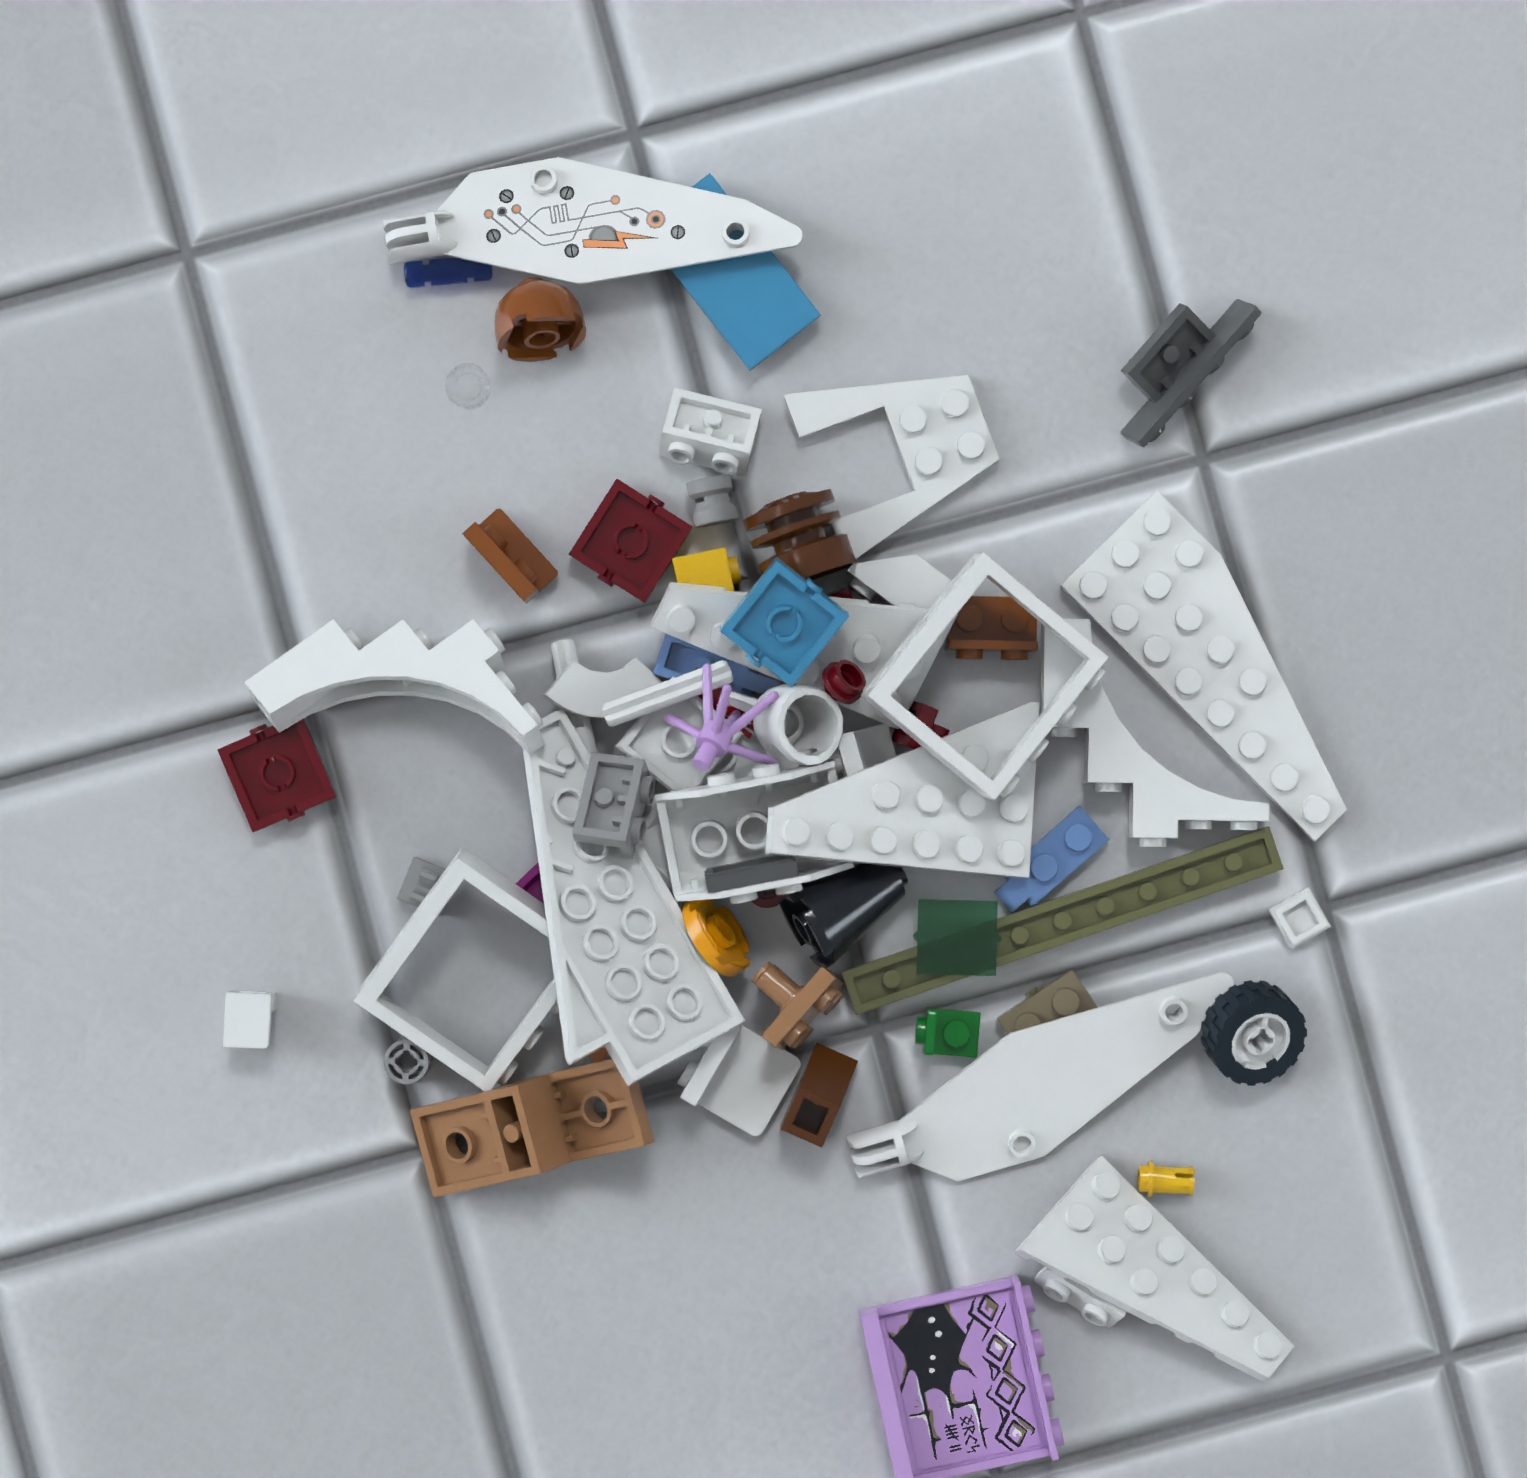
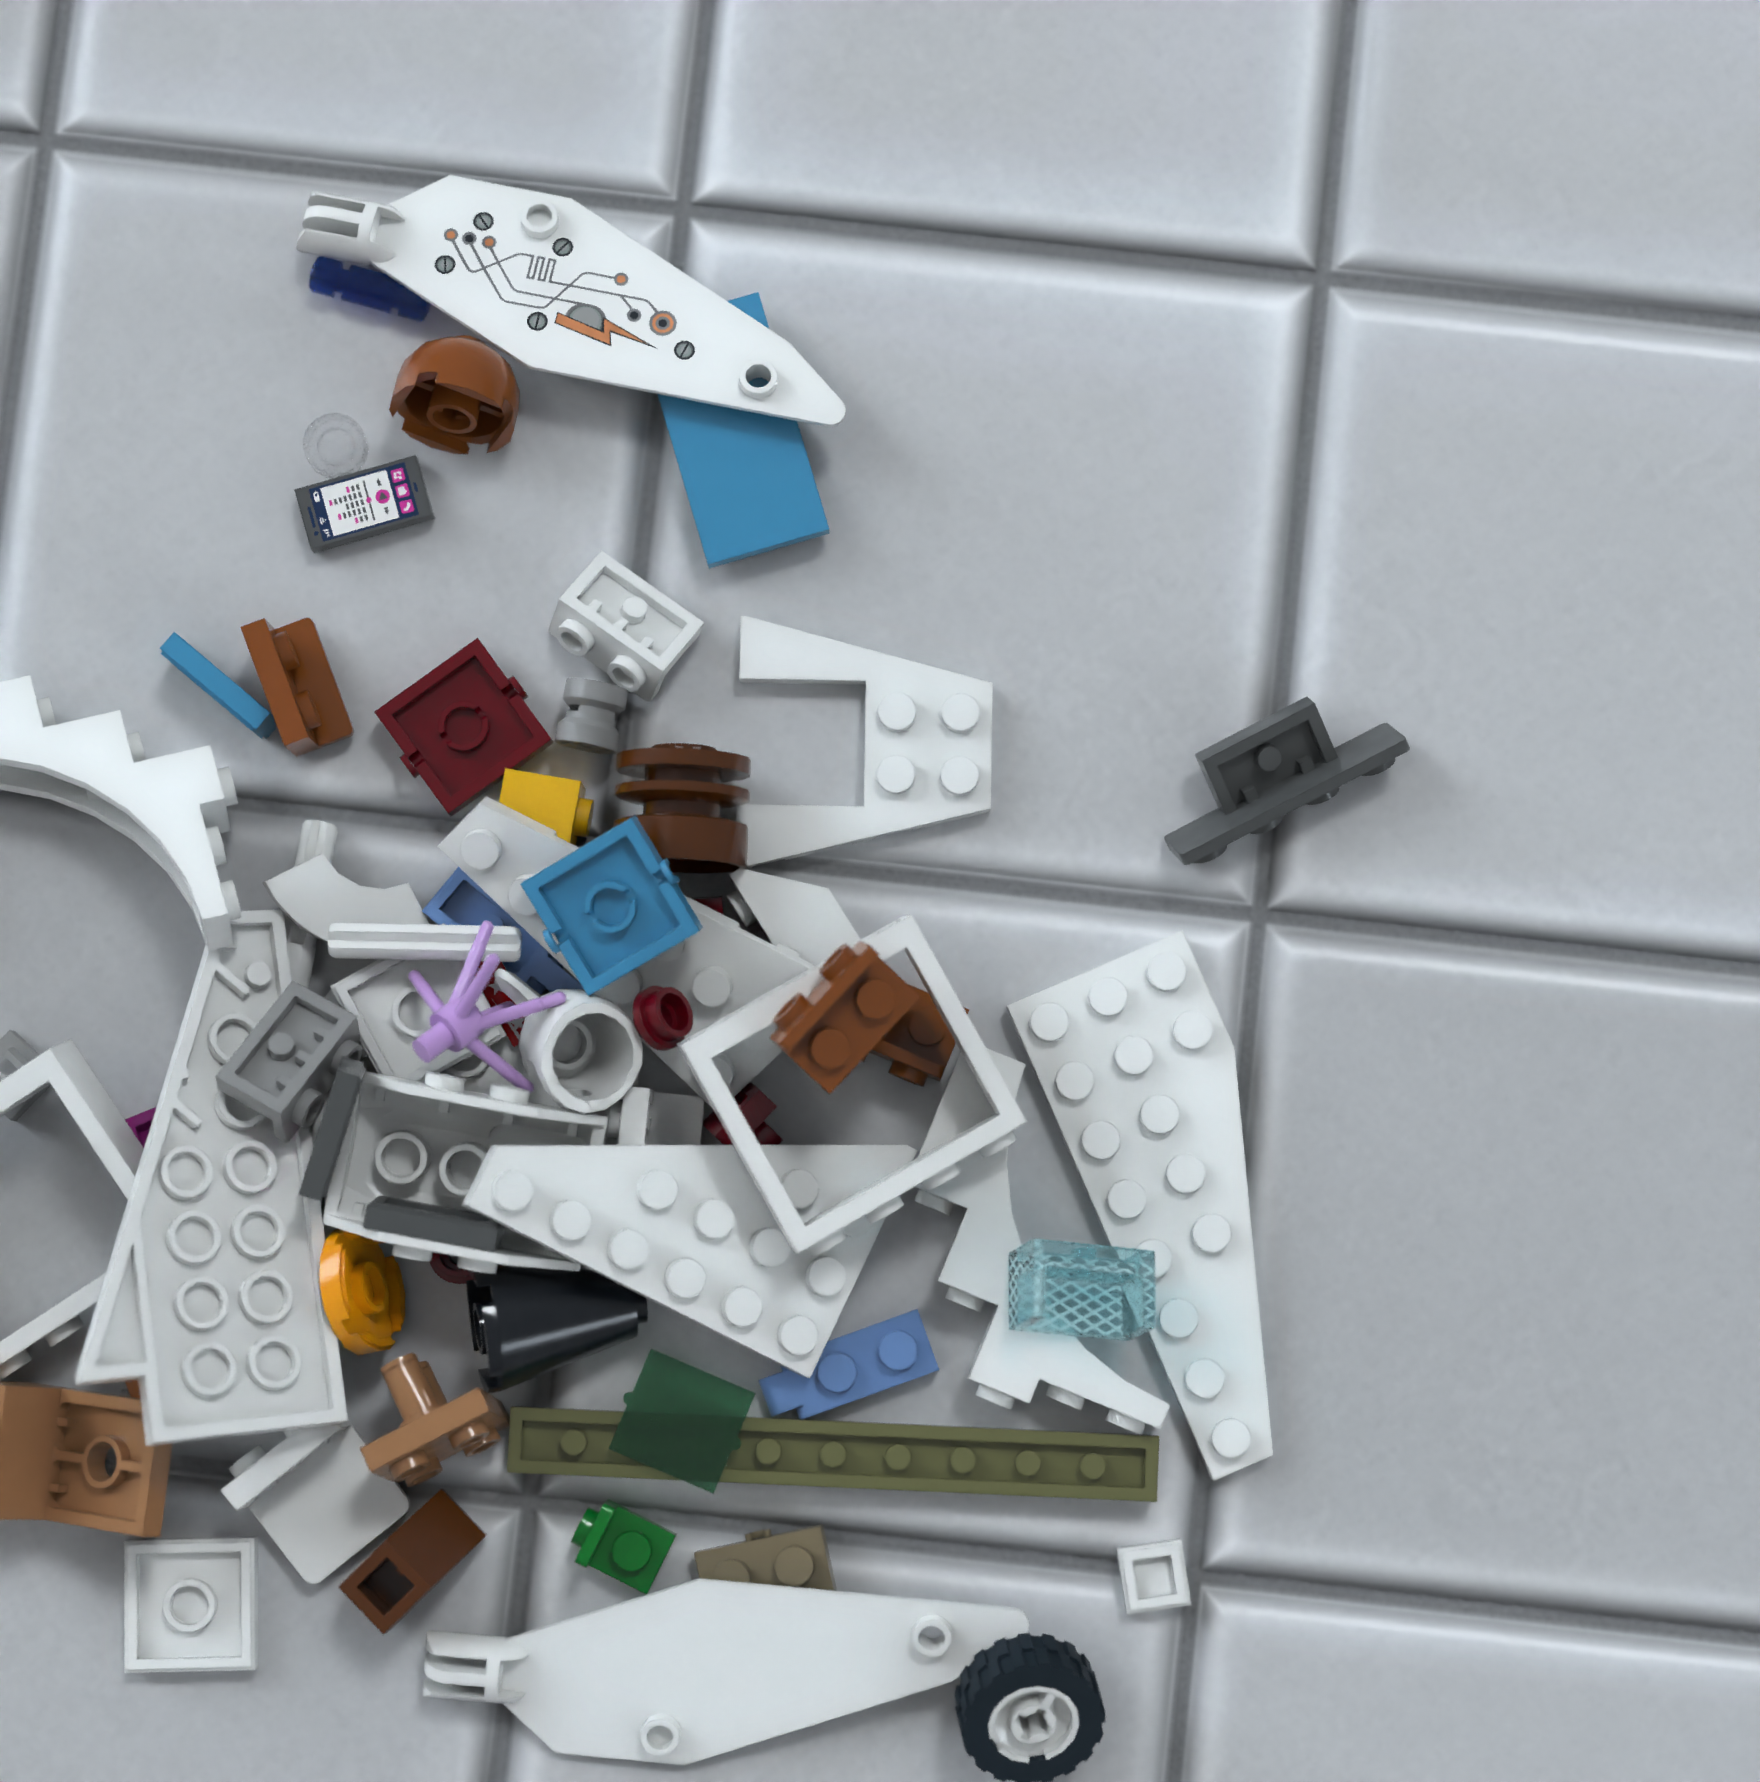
camera: 15 degrees right, 5 degrees down
(458, 577) = (218, 686): none -> dark azure tile
(503, 417) = (364, 504): none -> tile
(661, 837) = (332, 1128): none -> dark grey tile
(684, 1179) = (191, 1604): none -> white tile
(964, 635) = (842, 1015): none -> dark orange bracket
(1184, 751) = (1082, 1290): none -> clear light blue panel

